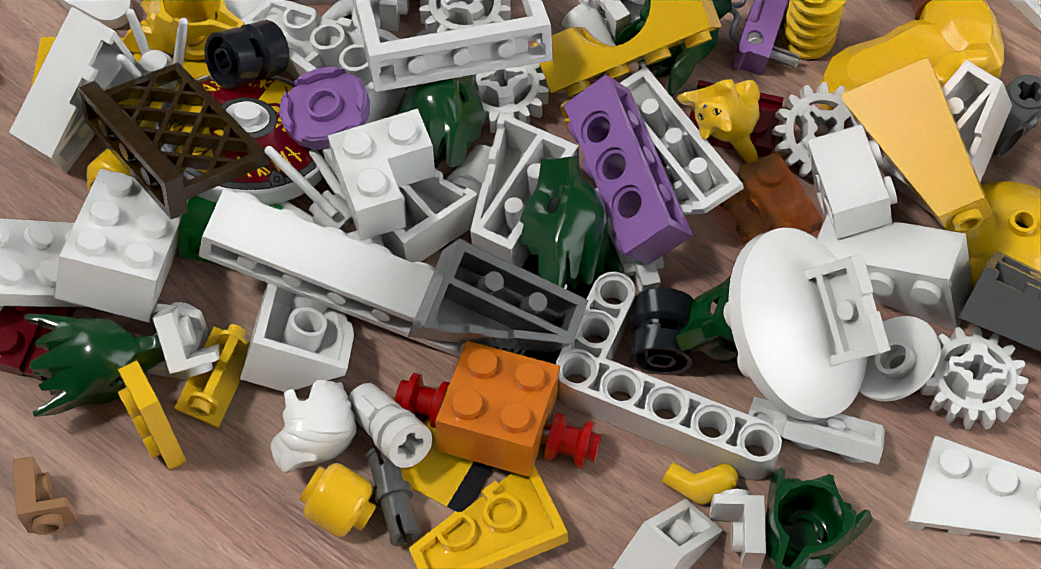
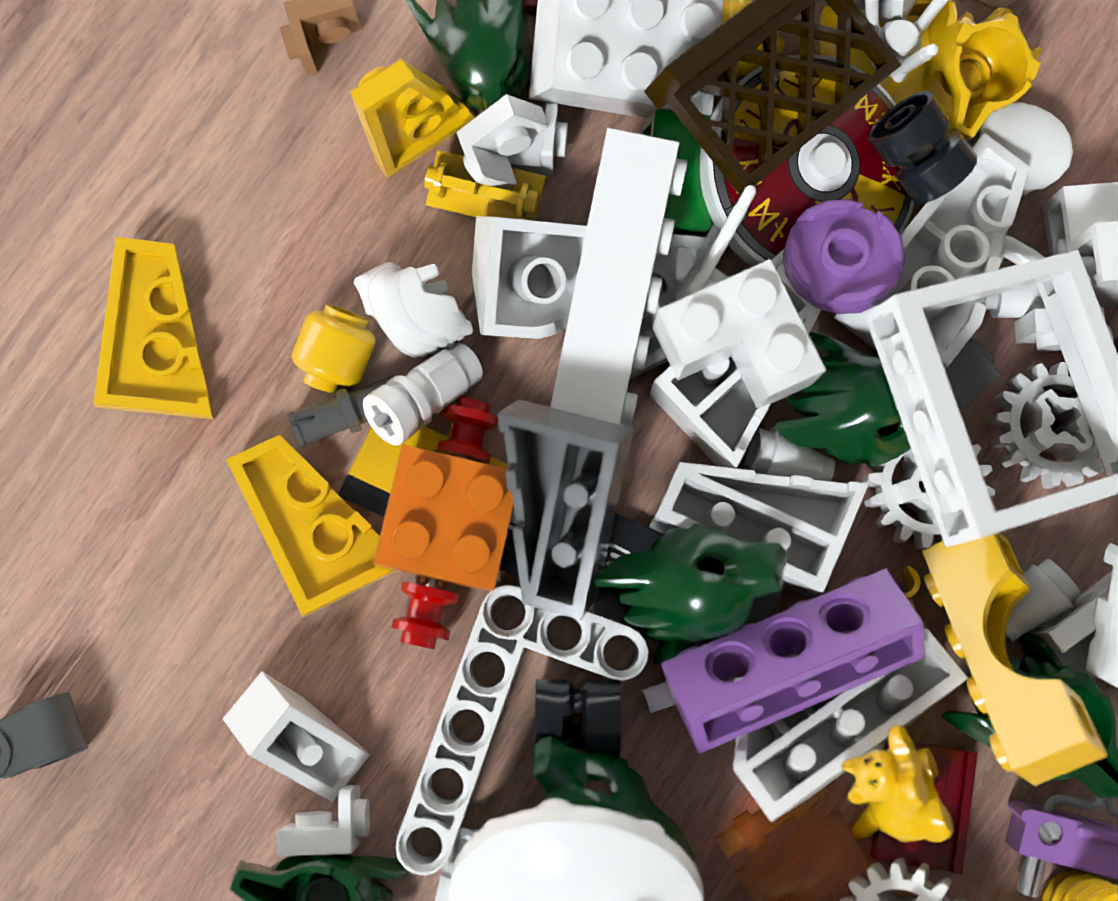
camera: 85 degrees right, 20 degrees up
(703, 485) = (381, 778): yellow arm -> none

